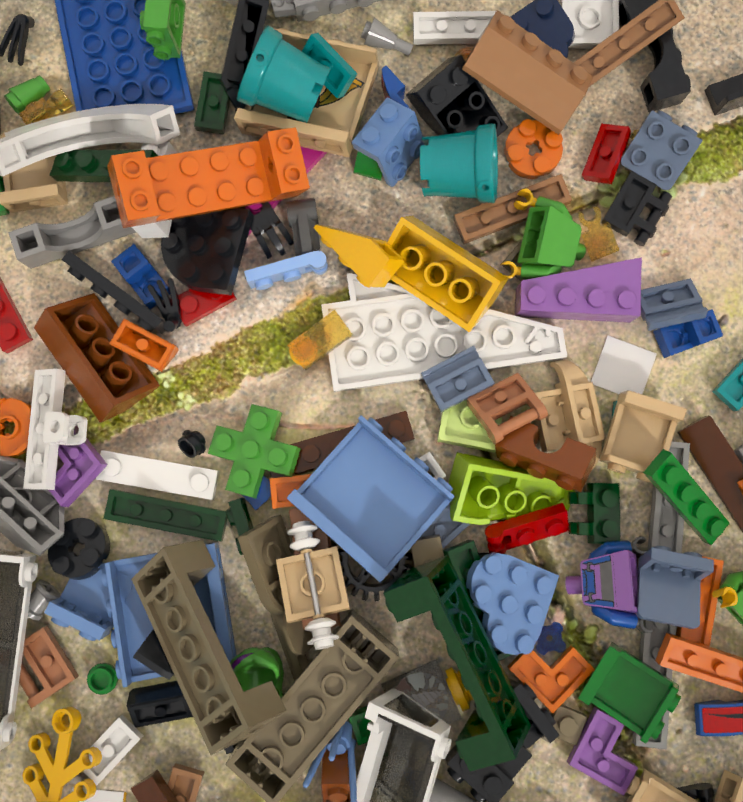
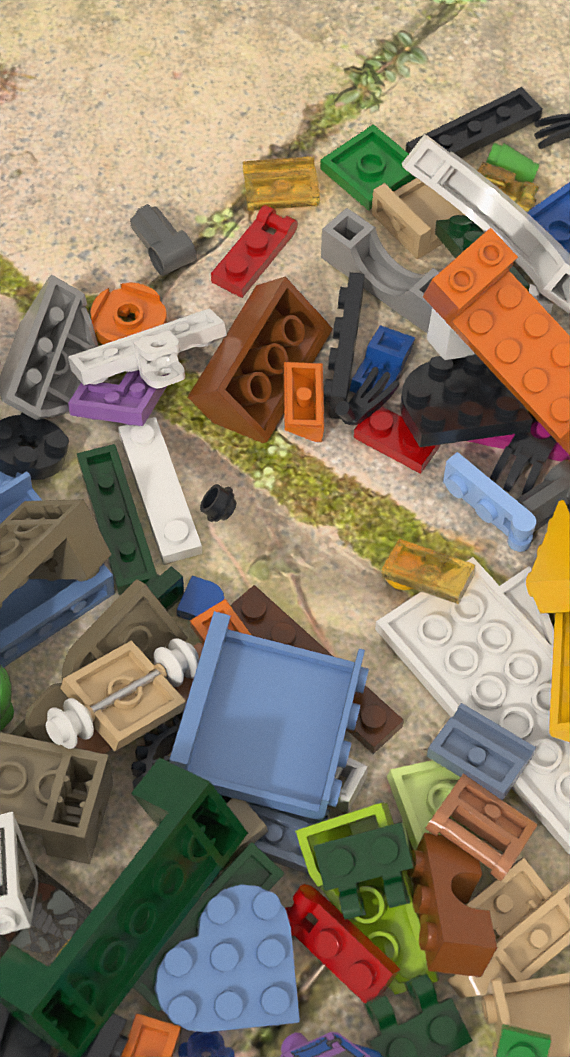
camera: 60 degrees right, 25 degrees down
(254, 451) = (248, 570): bright green plate -> none
(494, 491) = (365, 857): none -> dark green plate

